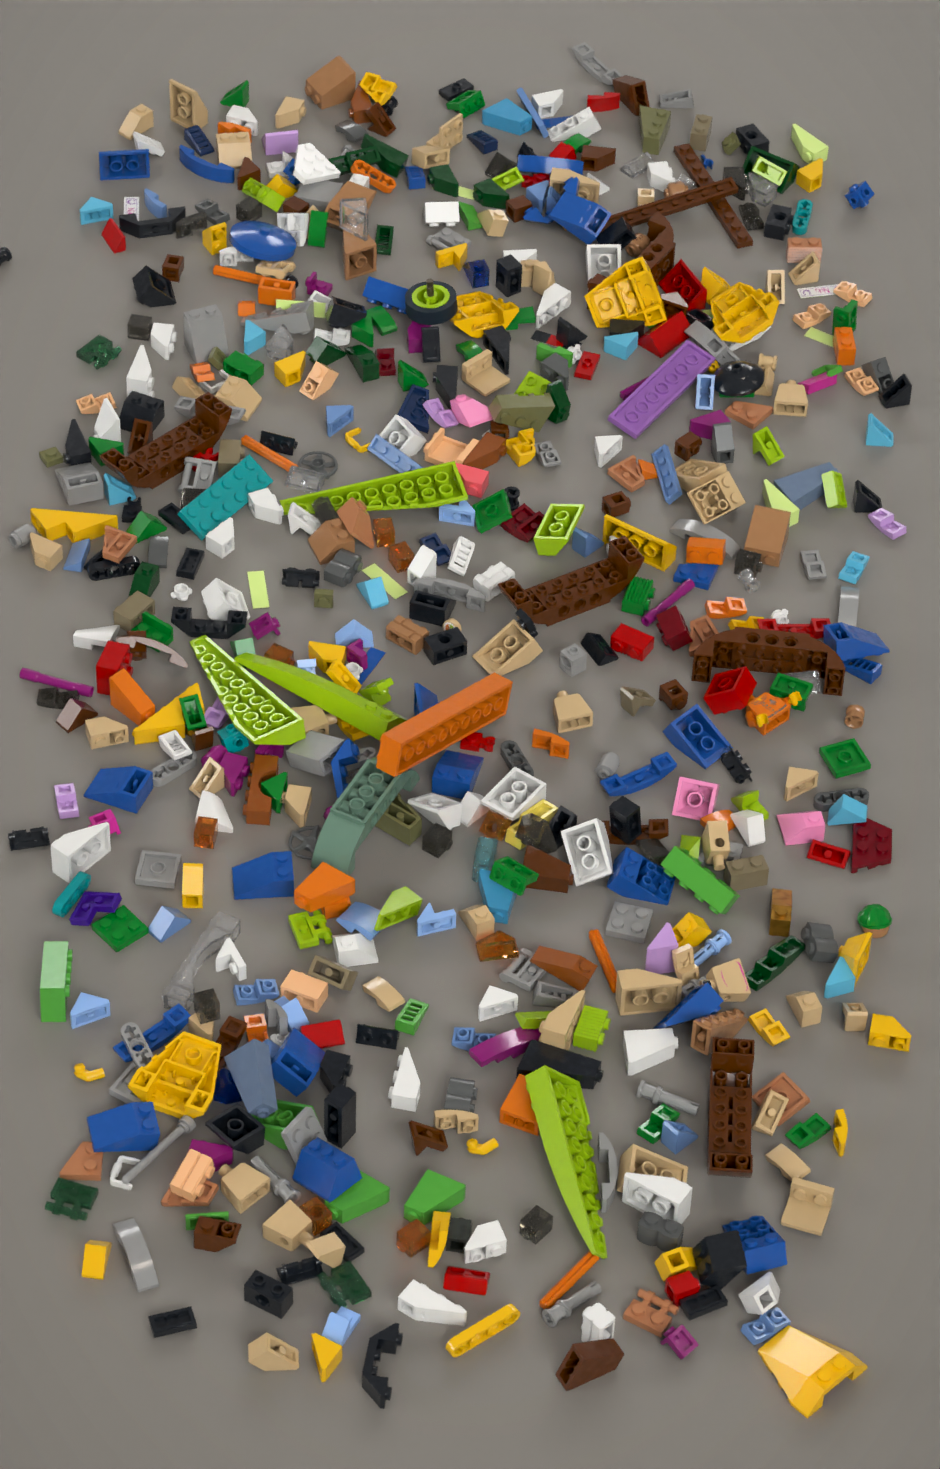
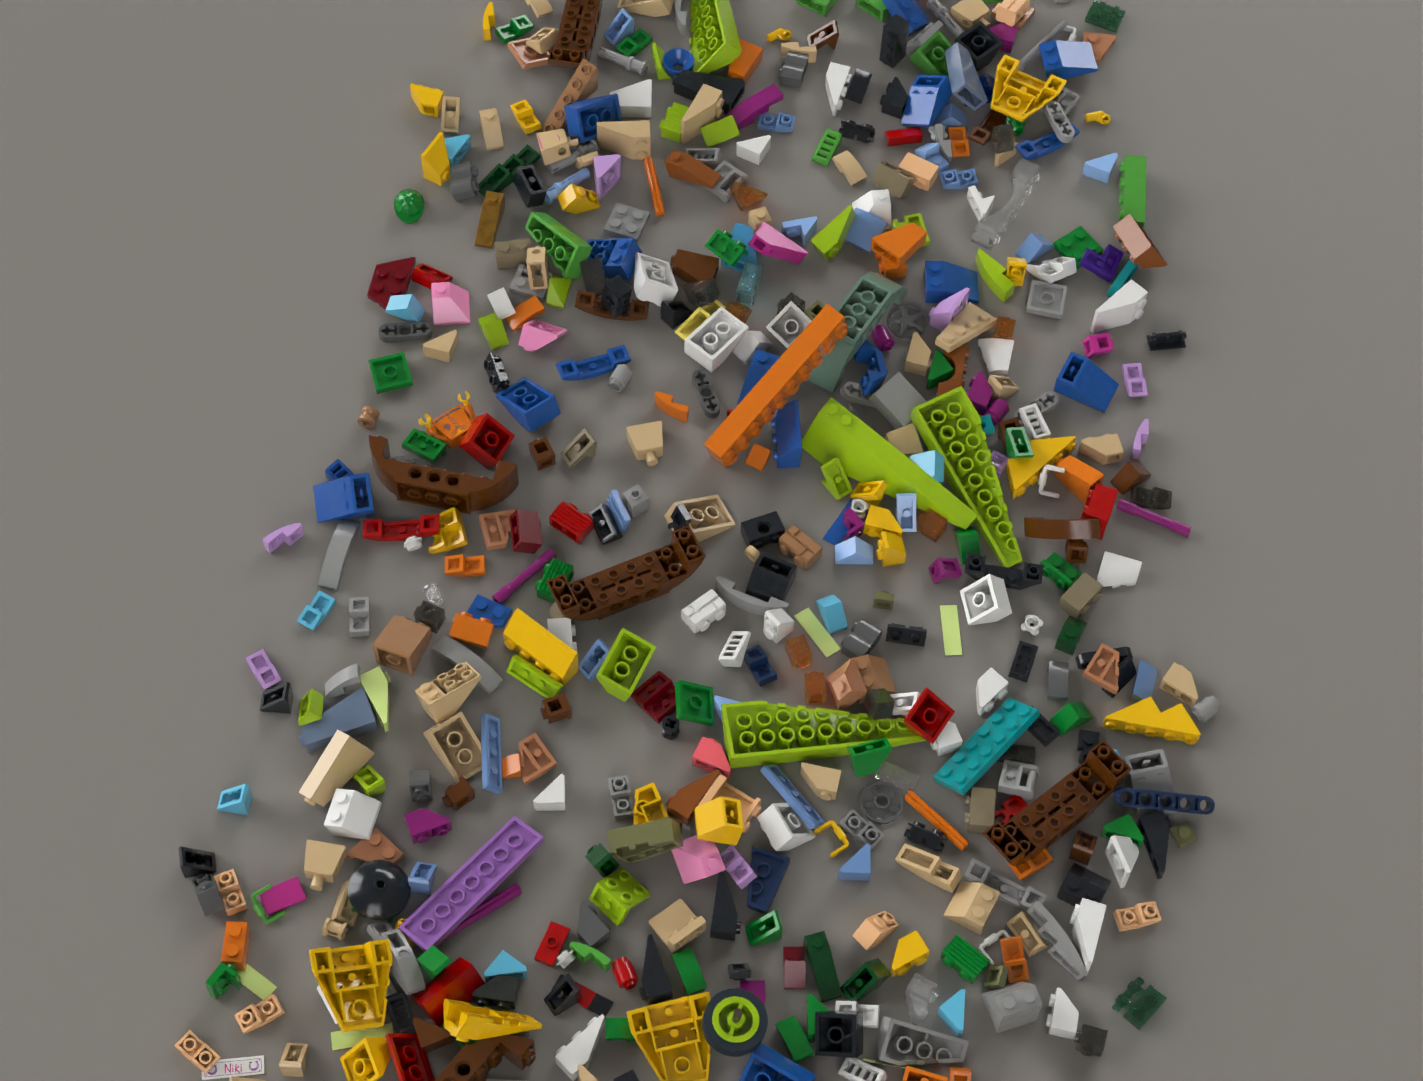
camera: 175 degrees left, 15 degrees up
(51, 913) = (1138, 243): none -> slope
(65, 460) = (1172, 804): none -> dark blue beam
(65, 744) = (1140, 438): none -> lavender slope
(149, 900) = (1053, 269): none -> white slope
(159, 696) = (1043, 477): none -> white piece
(169, 378) = (1062, 947): none -> light grey slope
(217, 888) = (994, 276): none -> lime slope
(244, 829) = (964, 327): none -> tan wing
(265, 837) = (948, 309): none -> lavender slope
(274, 421) = (929, 867): none -> tan slope
(279, 499) = (928, 716): none -> red slope
(285, 684) = (931, 463): none -> medium azure slope
(319, 628) = (890, 549): none -> yellow slope
(331, 444) = (861, 830): none -> light grey slope
(331, 479) = (868, 756): none -> green slope
(371, 468) = (821, 780): none -> tan slope
(378, 1086) = (858, 86): none -> black slope
(459, 422) = (720, 821): none -> yellow slope
(464, 887) = (776, 245): none -> dark pink slope
(524, 347) = (624, 973): none -> red brick
(592, 658) = (618, 510): none -> medium blue tile
(600, 1089) = (680, 57): none -> blue piece
(622, 1100) = (657, 54): none -> lime slope
(642, 525) = (533, 677): none -> lime tile
(677, 332) = (433, 962): none -> green slope
(745, 938) = (529, 186): none -> black brick
(779, 420) = (352, 814): none -> white slope
(797, 451) = (335, 768): none -> tan slope
(812, 509) = (336, 684): none -> light grey slope
(901, 617) = (287, 534): none -> lavender slope

